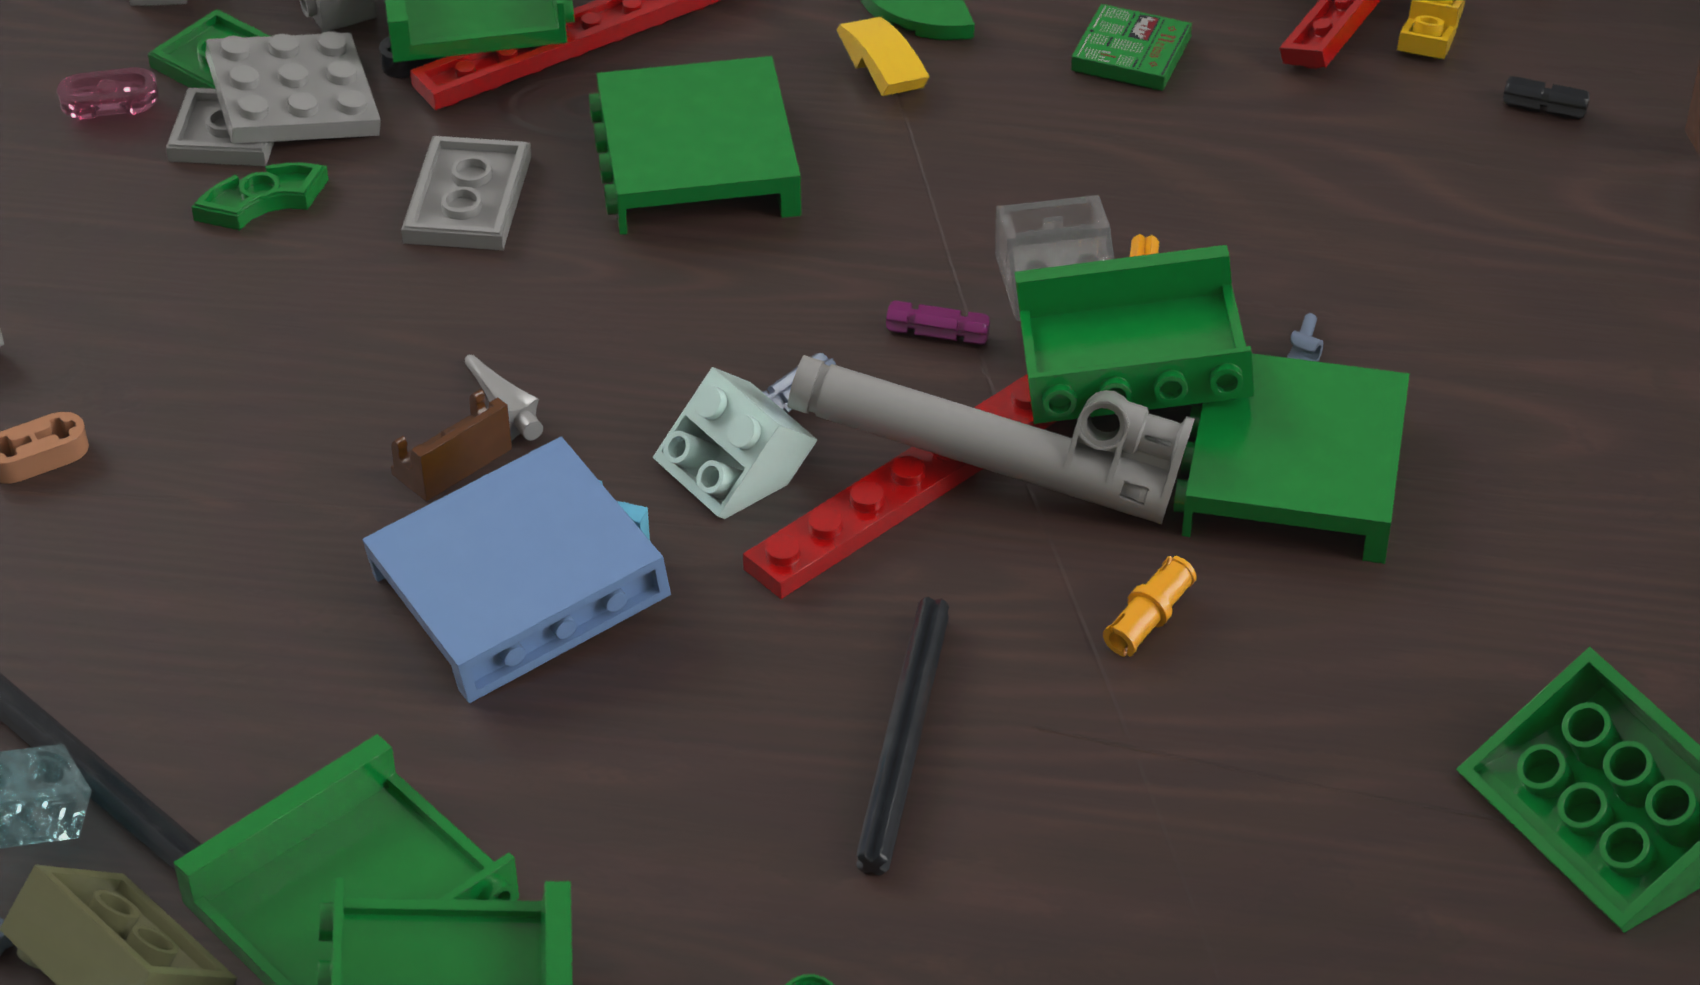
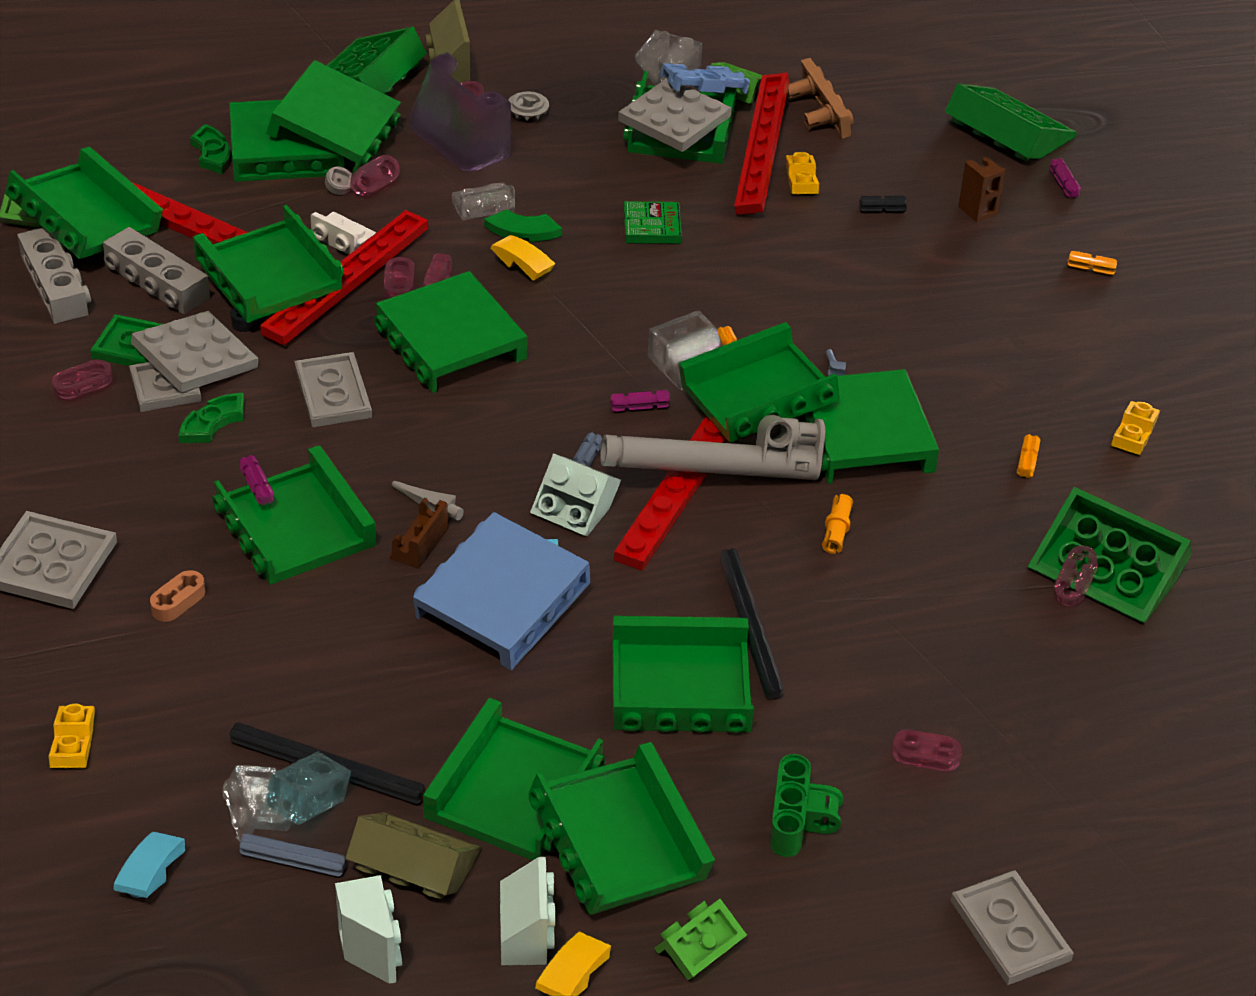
camera: 25 degrees left, 0 degrees up
(253, 300) = (256, 480): none -> magenta axle
(277, 378) = (305, 526): none -> green panel
(670, 42) = (399, 277): none -> clear pink plate
(731, 788) = (681, 674): none -> green panel
(737, 41) = (439, 269): none -> clear pink beam
(1527, 808) = (1069, 573): none -> clear pink beam
(1562, 580) = (1028, 456): none -> light orange piece

